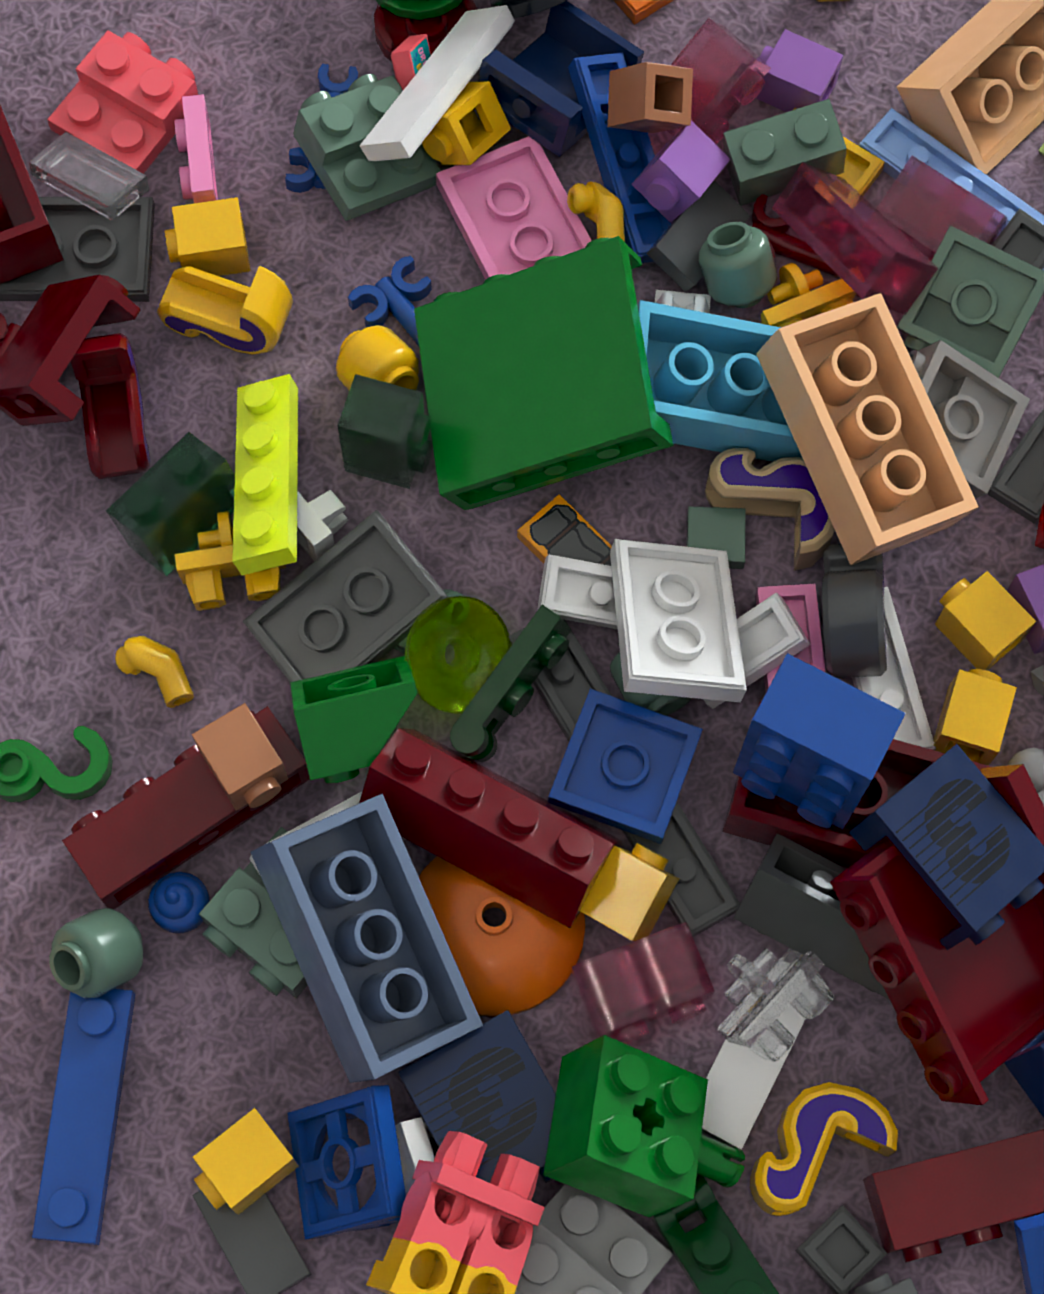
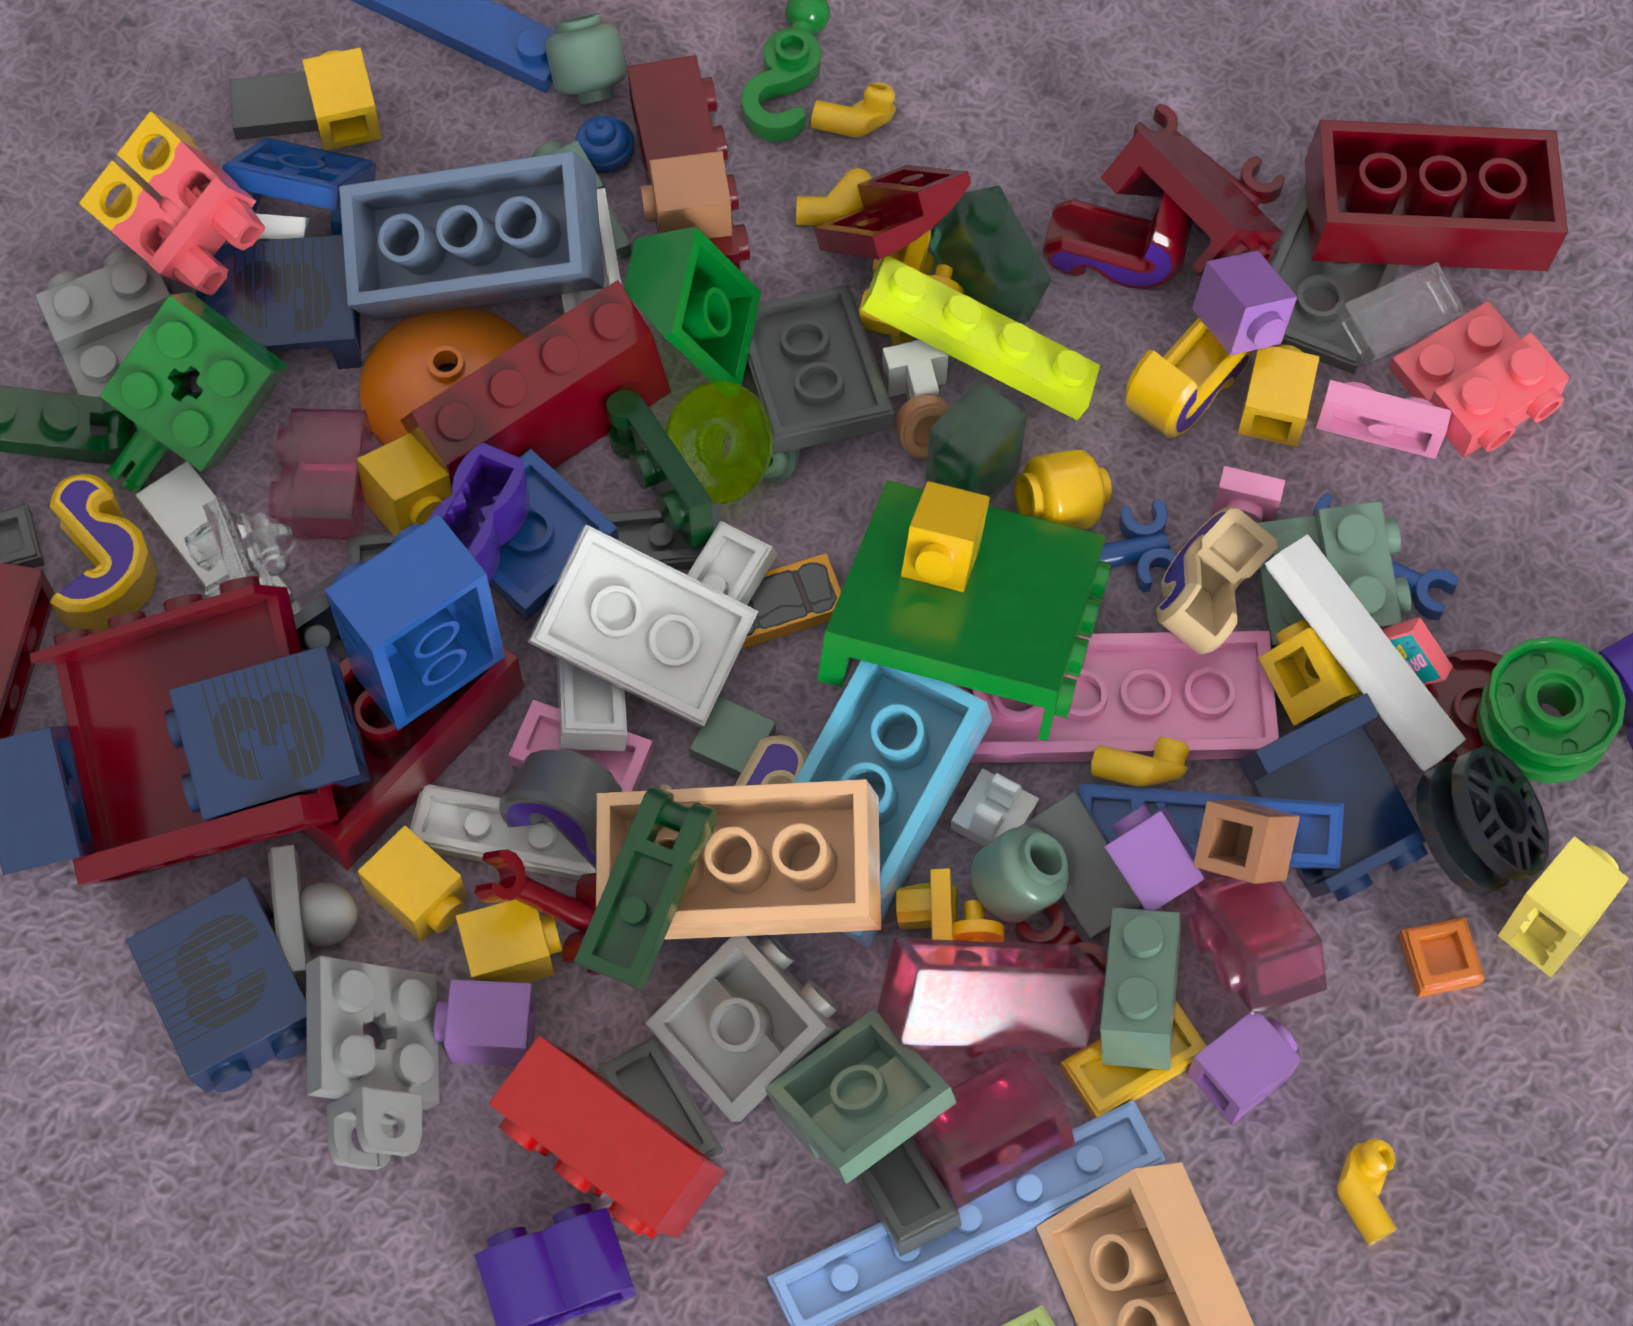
camera: 115 degrees right, 5 degrees down
(53, 686) = (860, 118): none -> yellow arm
(155, 264) = (1244, 302): none -> medium lavender brick
(171, 588) = (894, 211): none -> dark red slope
(323, 229) = (1250, 492): none -> bright pink plate
(362, 493) = (915, 420): none -> nougat tile
(426, 228) = (1205, 575): none -> tan animal
(505, 389) = (945, 536): none -> yellow brick
(680, 781) = (486, 503): none -> dark purple brick
(940, 574) = (535, 894): none -> dark red bar
(943, 464) = (645, 889): none -> dark green plate

